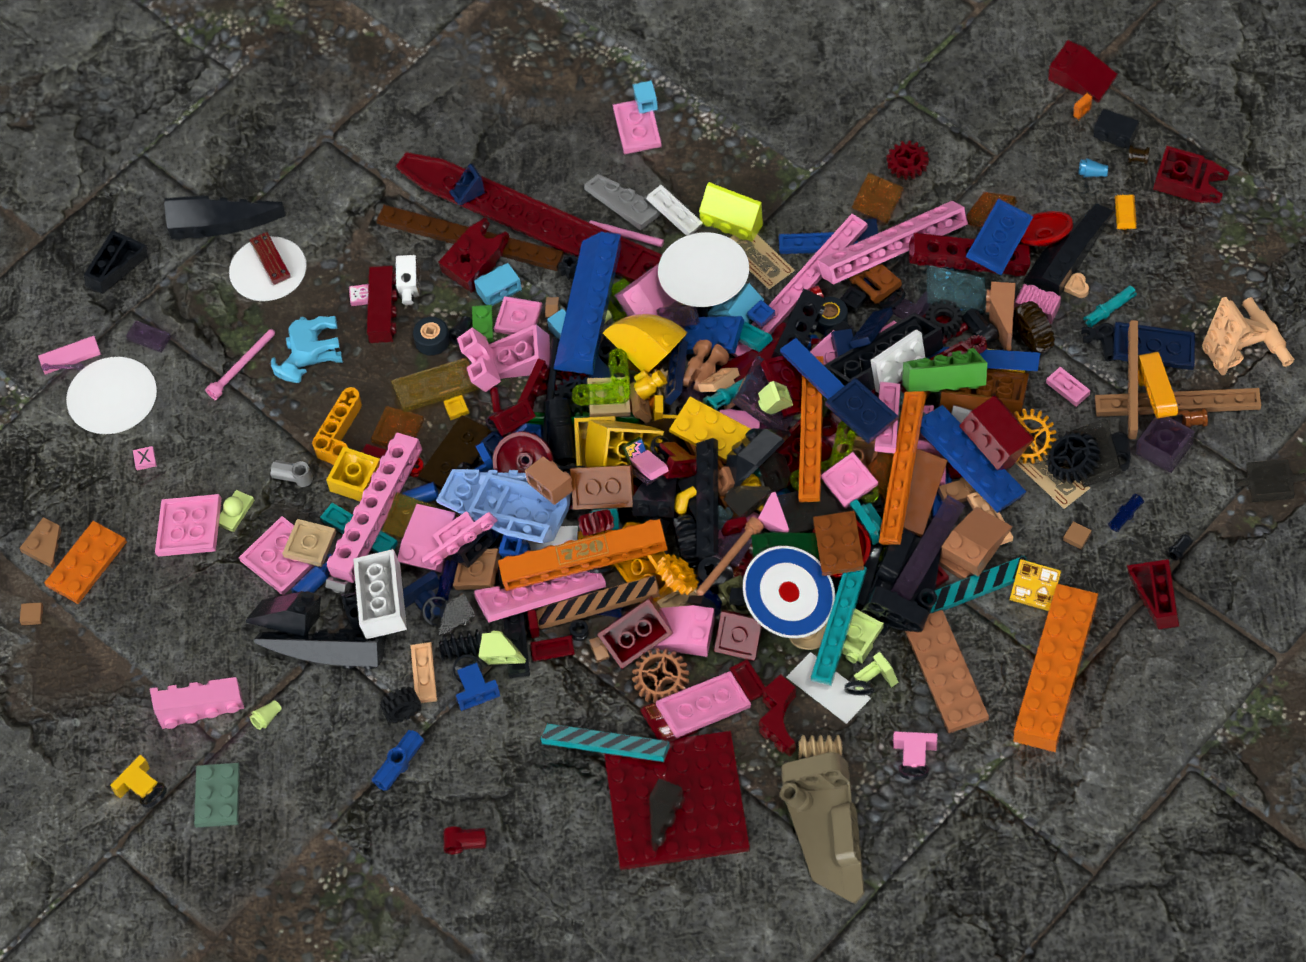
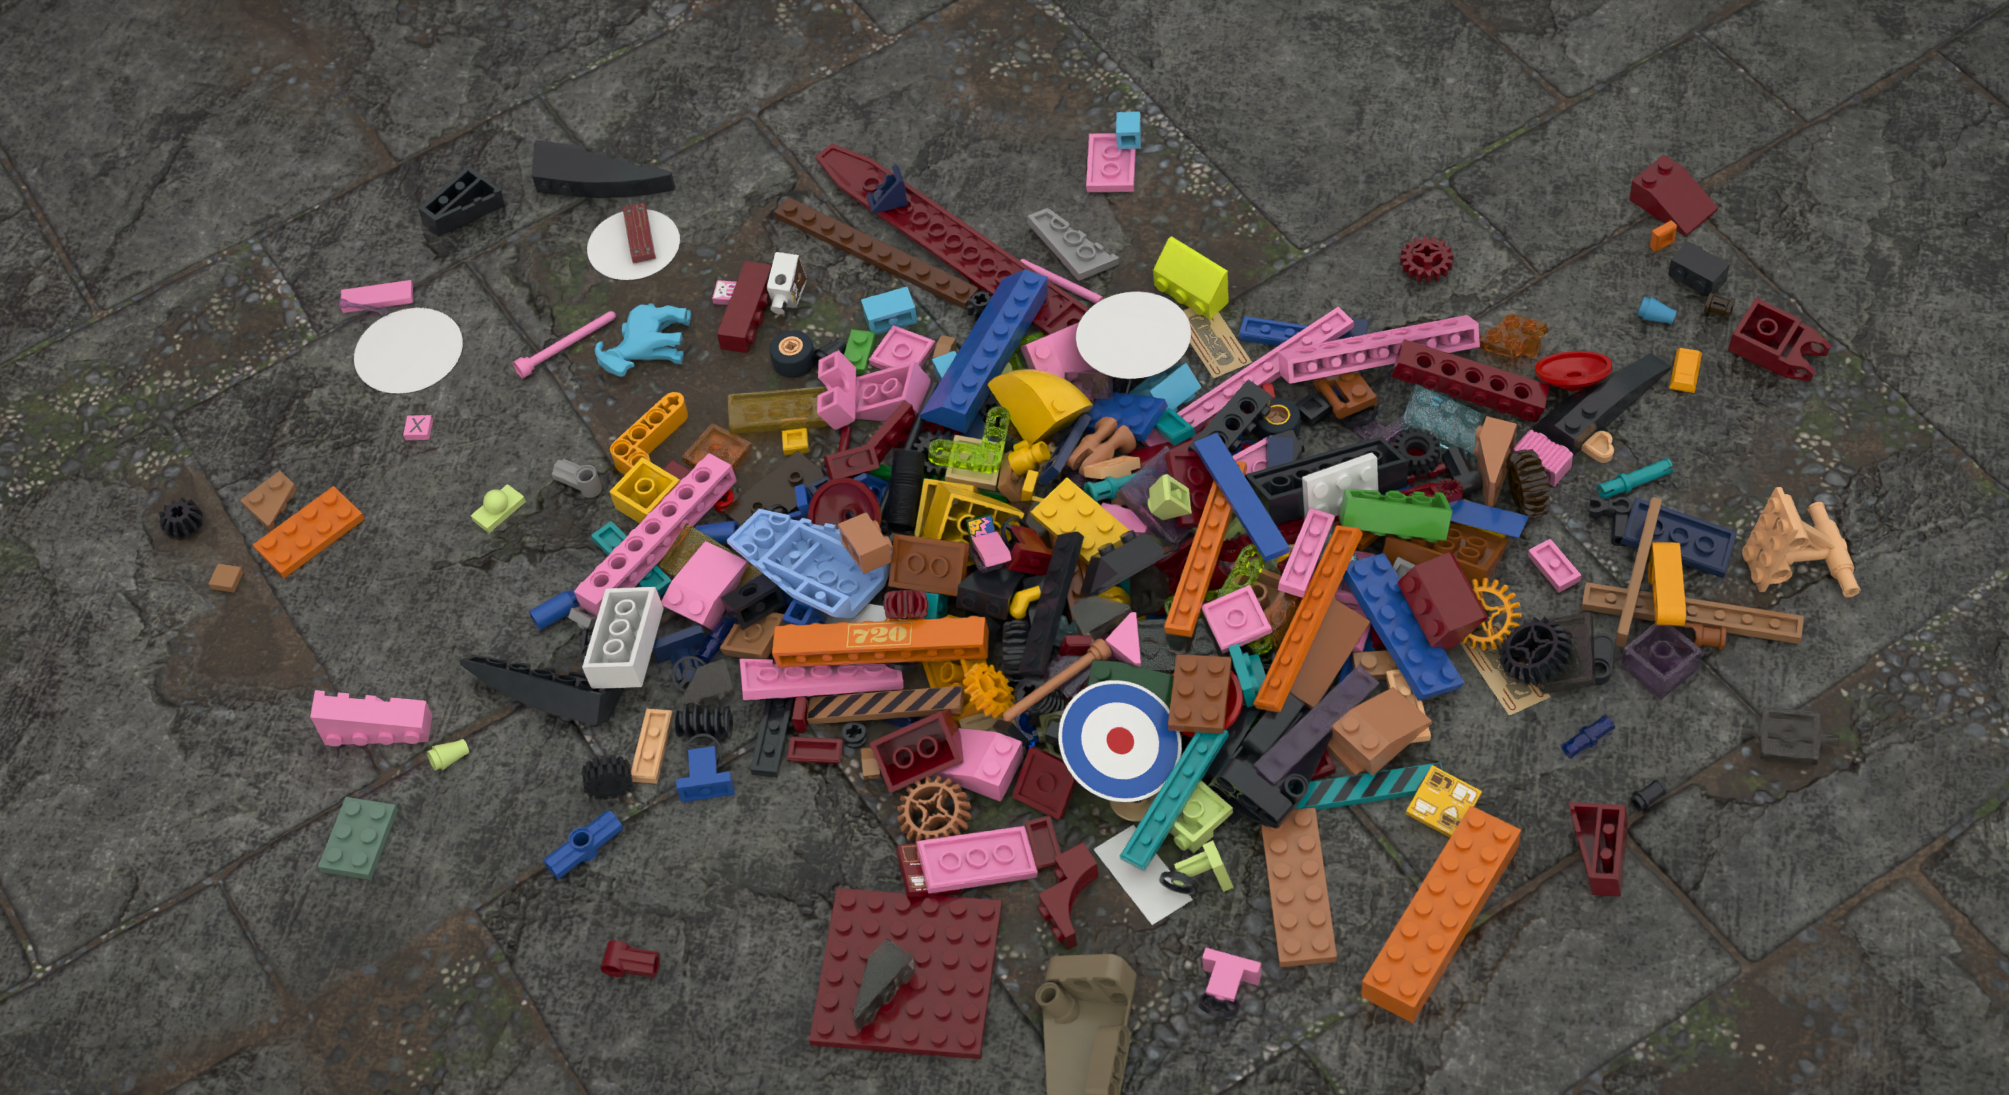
camera: 15 degrees right, 5 degrees down
(137, 779) = (270, 800): yellow piece -> none
(148, 336) = (471, 292): clear purple plate -> none
(188, 525) = (437, 513): bright pink plate -> none
(267, 561) = (533, 570): bright pink plate -> none
(288, 613) = (514, 639): black slope -> none
(309, 542) = (566, 561): tan plate -> none
(456, 534) = (734, 586): bright pink bracket -> none
(473, 255) = (870, 269): dark red brick -> none
(498, 649) = (746, 736): yellowish green slope -> none
(605, 742) = (840, 879): teal tile -> none
(674, 210) = (1124, 263): white plate -> none
(725, 481) = (1079, 586): nougat tile -> none
(761, 313) = (1191, 401): blue plate -> none
(818, 747) = (1096, 944): tan piece -> none
(861, 410) = (1273, 535): dark blue tile -> none
(871, 328) = (1321, 444): dark blue tile -> none
(877, 198) = (1376, 295): clear orange plate -> none
(999, 236) = (1512, 366): blue plate -> none
(1077, 535) = (1516, 752): medium nougat tile -> none

